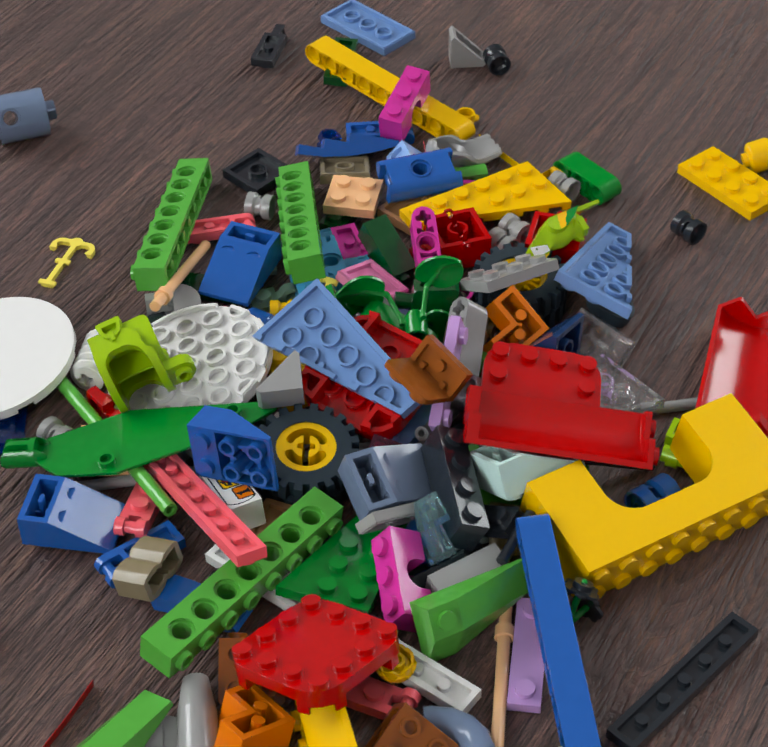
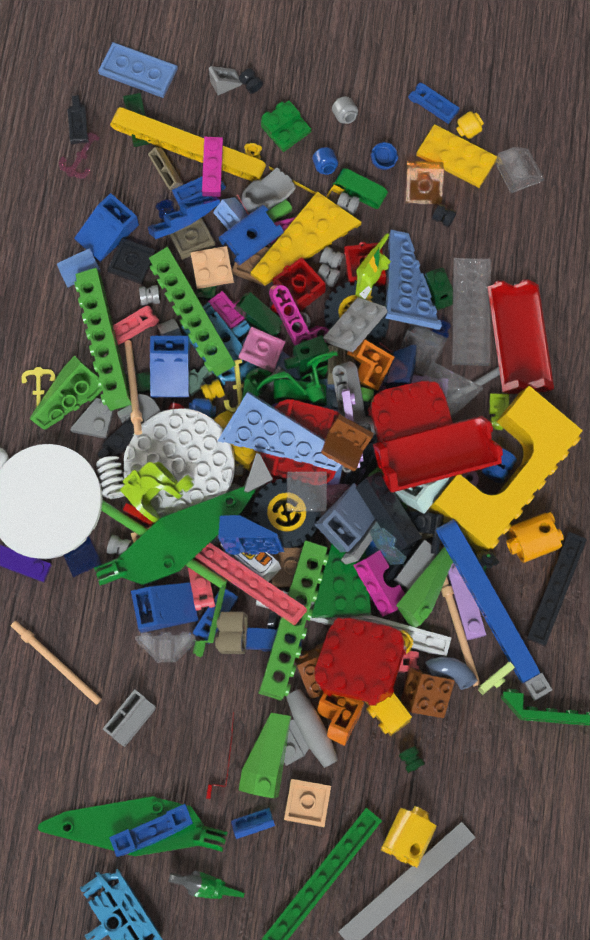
camera: 20 degrees left, 30 degrees up
(48, 567) = (166, 646): none -> clear slope
(92, 268) = (70, 390): none -> bright green wedge
(97, 582) = (200, 645): none -> bright green piece
(118, 301) = (94, 420): none -> light grey wing
(187, 150) = (78, 263): none -> medium blue panel
(237, 87) = (70, 171): none -> clear pink piece
(245, 130) = (107, 227): none -> blue slope
(345, 425) = (306, 491): none -> clear tile
(348, 102) = (157, 153): none -> dark tan piece
(518, 105) = (285, 125): none -> green plate
(553, 143) = (325, 160): none -> blue head
(601, 107) = (345, 110): none -> light grey head
(632, 155) = (384, 156): none -> blue hair
(636, 333) = (445, 326): none -> clear blue plate
(648, 275) = (439, 286): none -> dark green torso
(671, 596) = (534, 537): none -> light orange cylinder
(674, 189) = (424, 182): none -> clear orange slope
(683, 331) = (471, 312): none -> clear plate
(721, 128) = (434, 103): none -> blue plate

